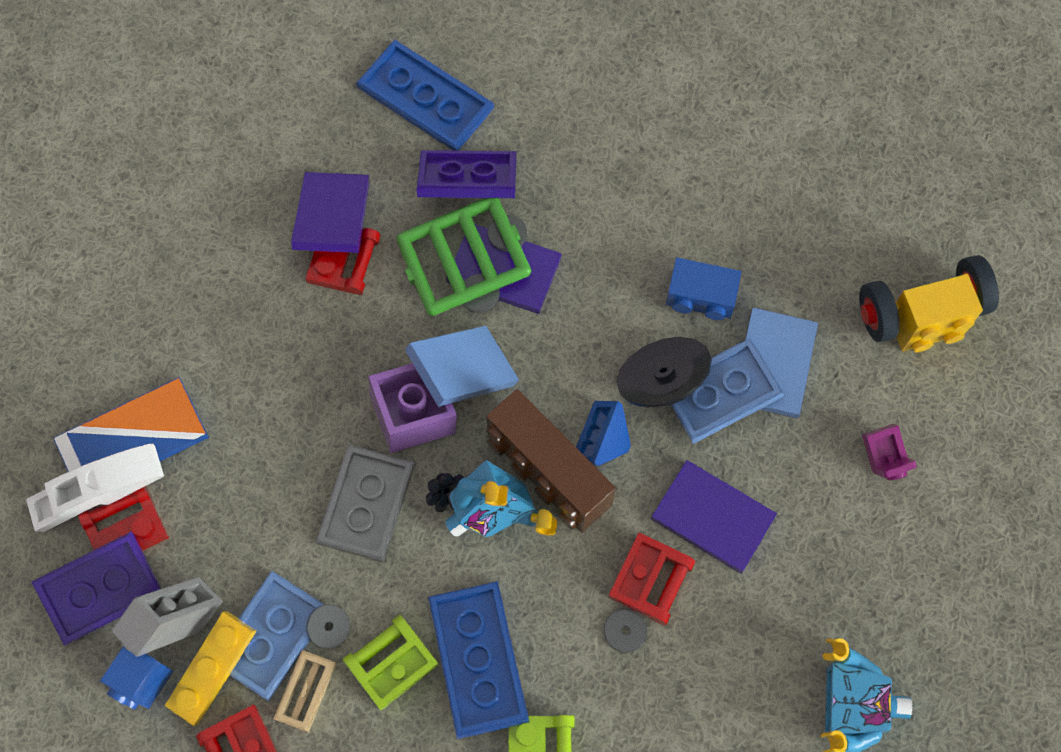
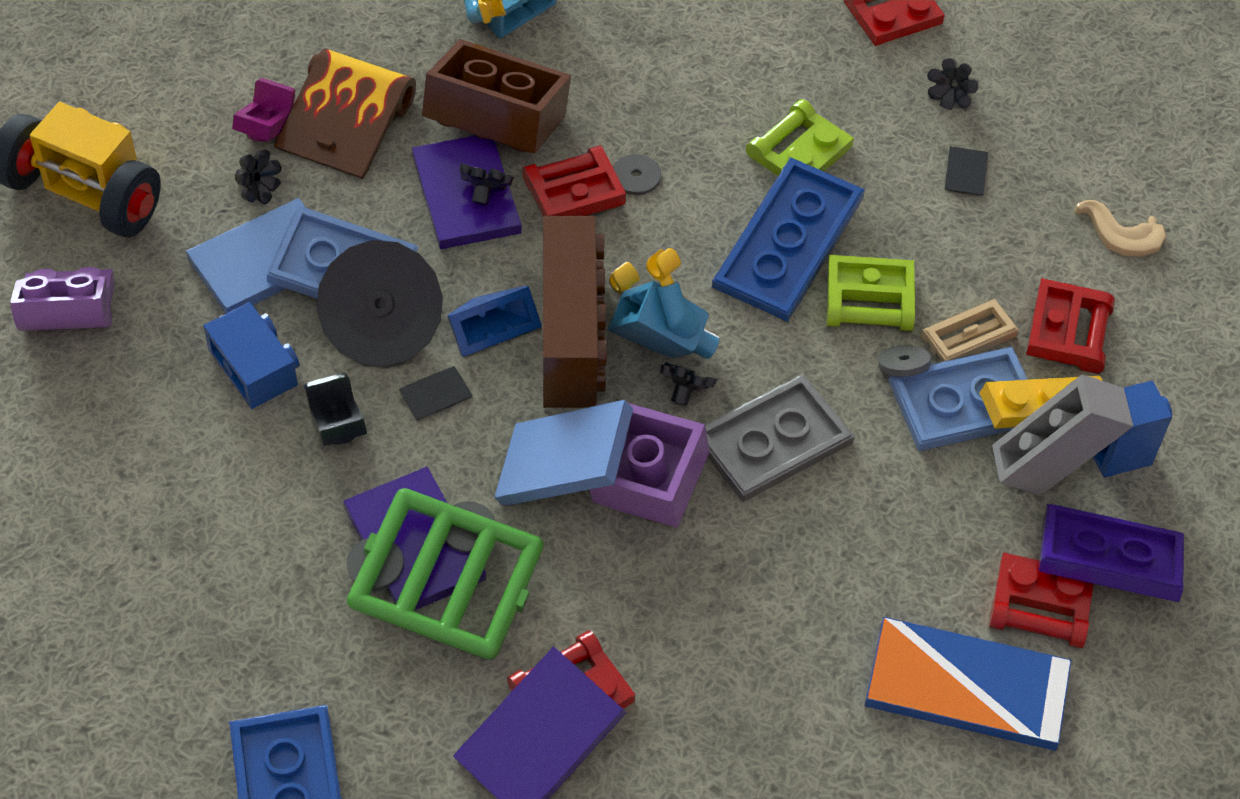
camera: 140 degrees left, 15 degrees down
(94, 484) = (1052, 628): white slope -> none
(467, 174) = (350, 655): dark purple tile -> none
(585, 364) = (435, 392): none -> black piece
(619, 295) = (334, 410): none -> black bracket
(699, 516) = (484, 182): none -> black plant
(760, 587) = (496, 96): none -> reddish brown brick
(838, 405) = (258, 176): none -> black plant
(840, 231) = (63, 299): none -> medium lavender brick
(847, 504) = (344, 112): none -> reddish brown door

